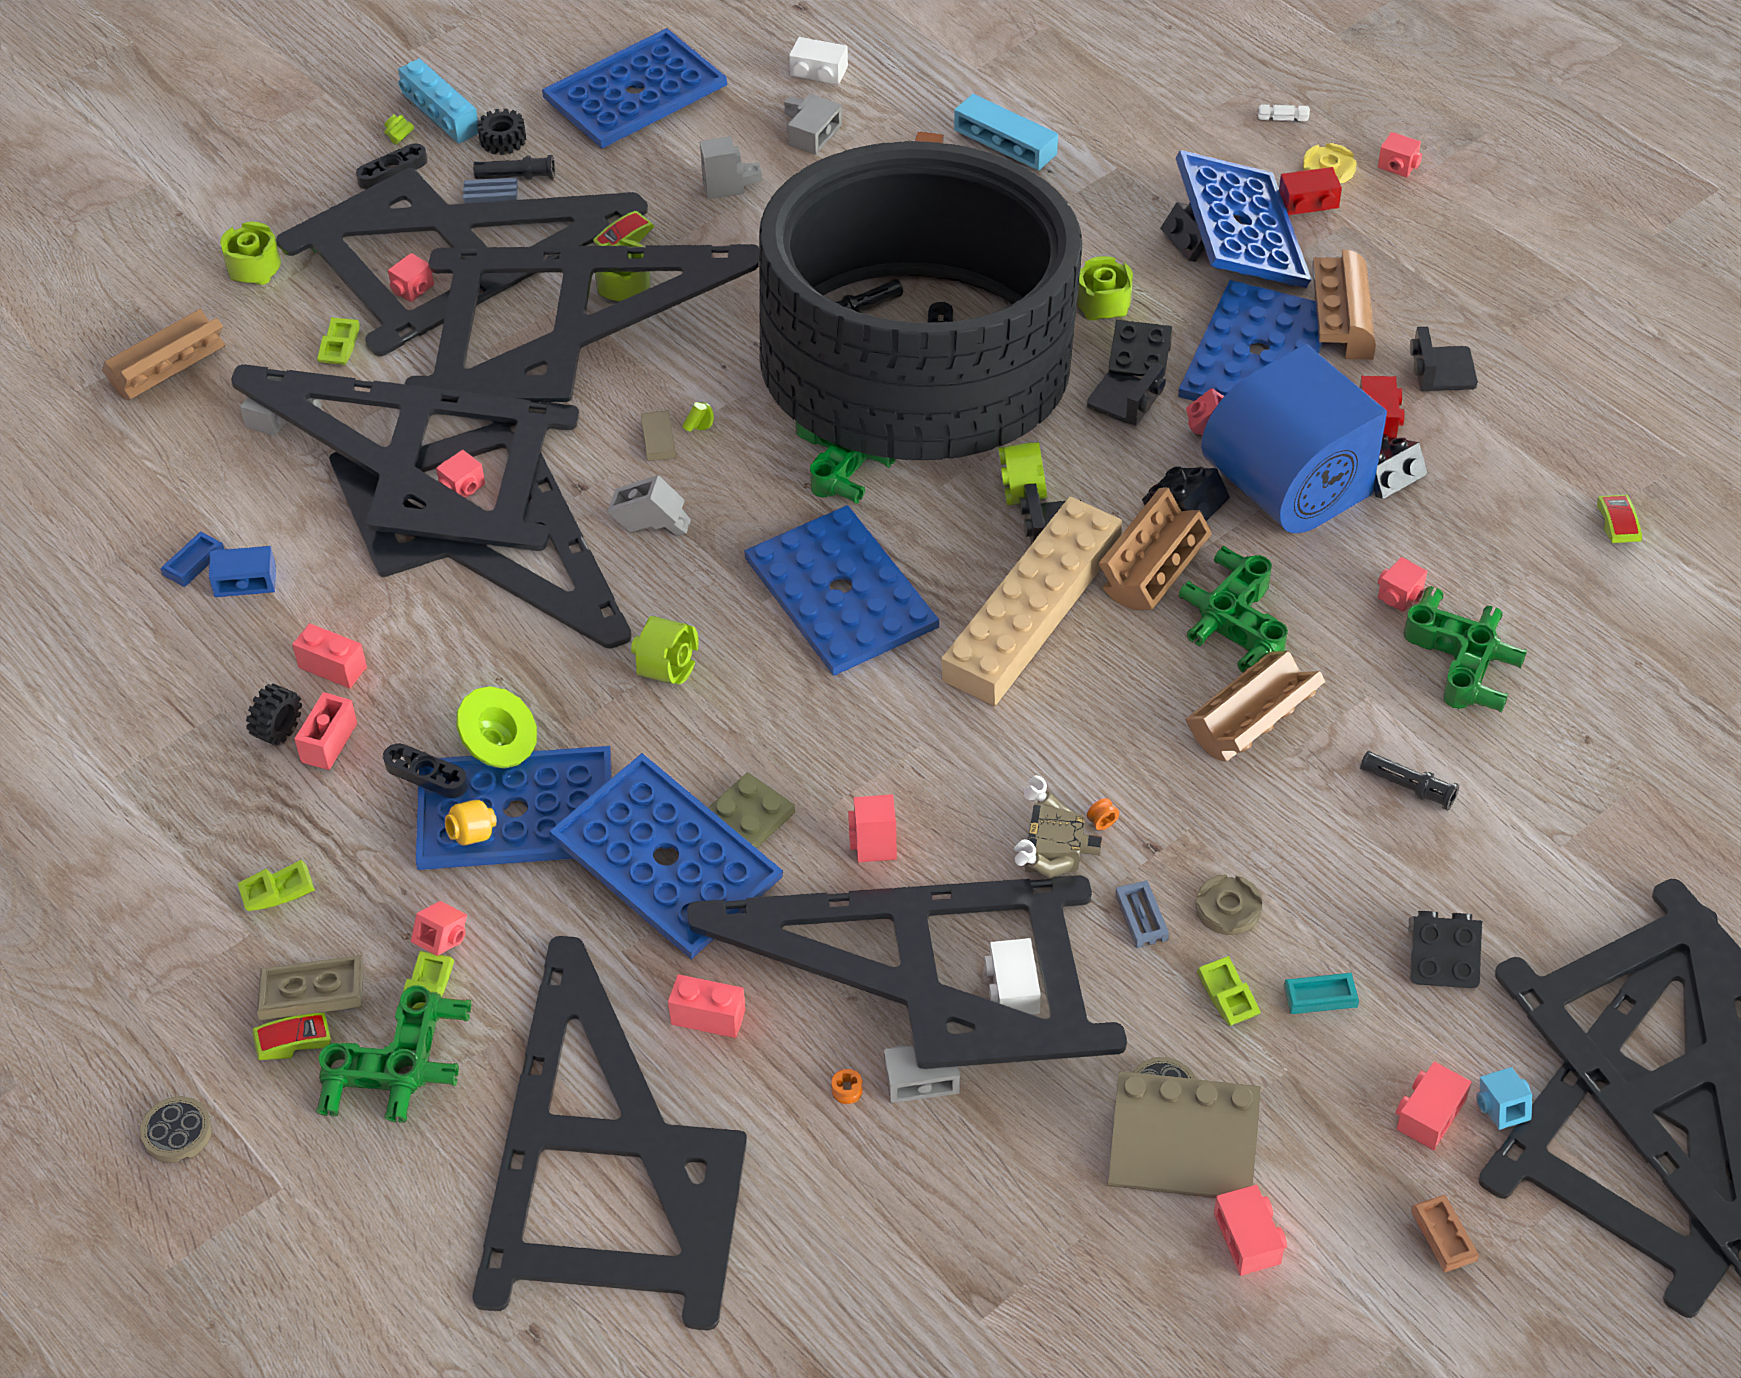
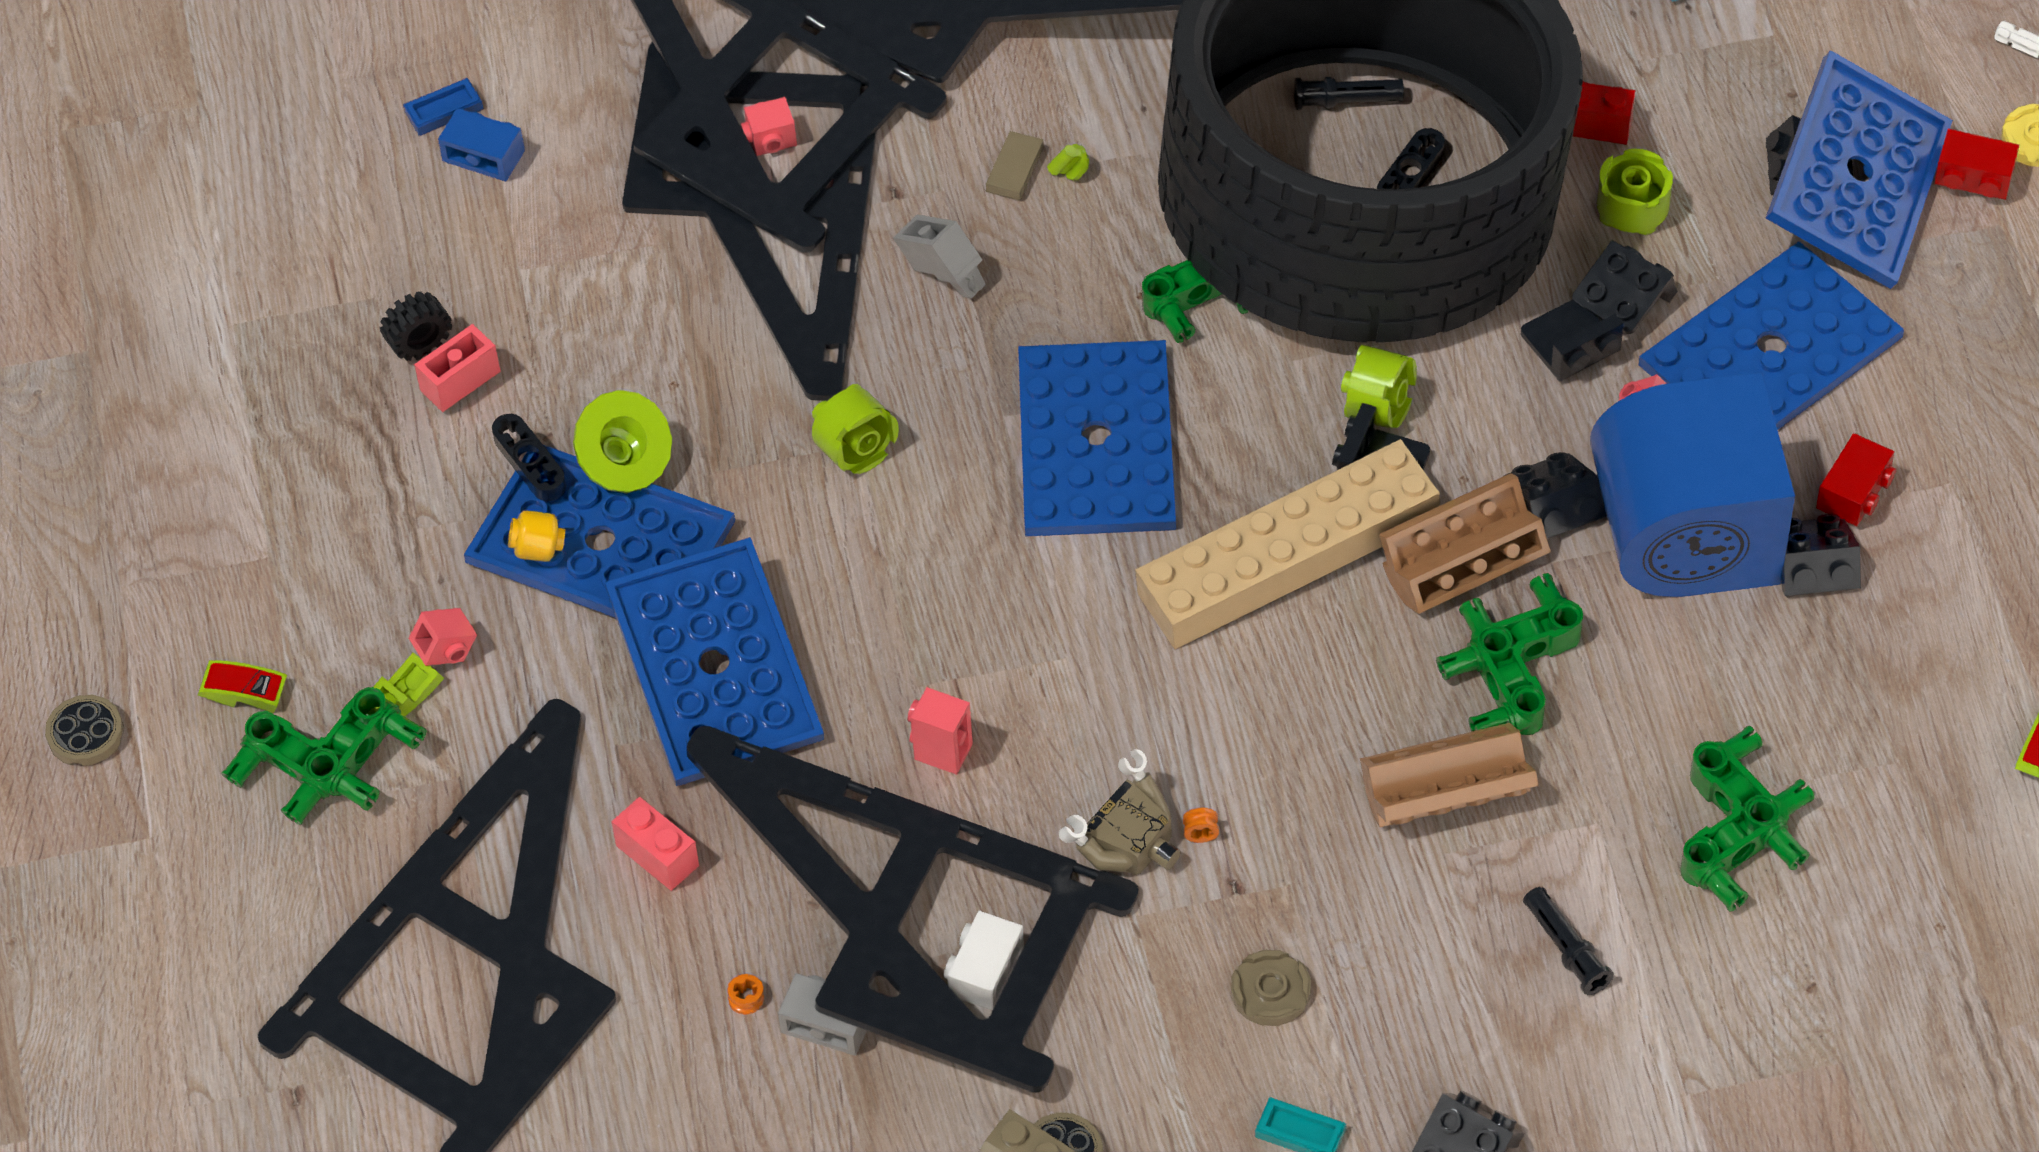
camera: 30 degrees right, 5 degrees up
(269, 890) = (311, 518): lime slope -> none
(310, 987) = (288, 642): dark tan tile -> none
(329, 655) = (512, 282): coral brick -> none
(753, 809) = (836, 651): olive plate -> none
(1148, 935) = (1164, 982): sand blue tile -> none
(1227, 992) = (1201, 1081): lime slope -> none
(1344, 303) = (1910, 331): medium nougat brick -> none
(1402, 584) = (1723, 709): coral brick -> none
(1443, 366) = (1975, 459): black bracket -> none

